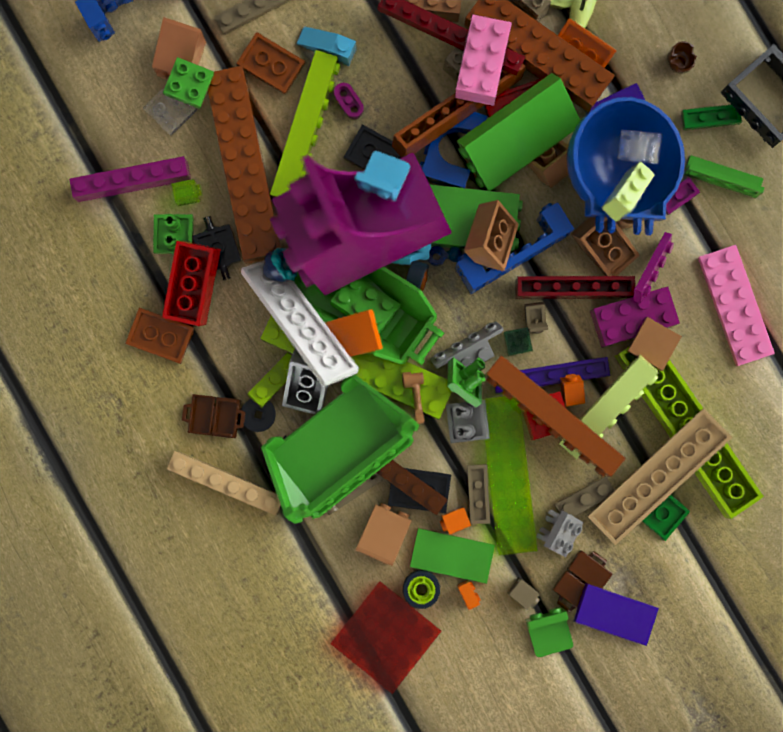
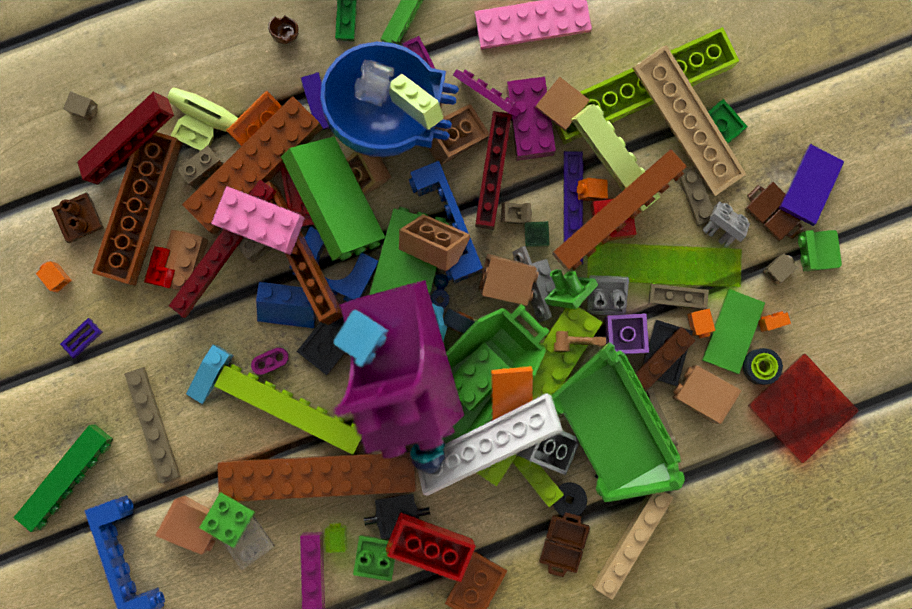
camera: 75 degrees left, 0 degrees up
(271, 63) = (218, 433): dark orange plate -> none
(404, 102) = (284, 305): none -> blue slope
(432, 446) = (627, 333): none -> medium lavender brick
(466, 318) = (507, 280): none -> medium nougat slope

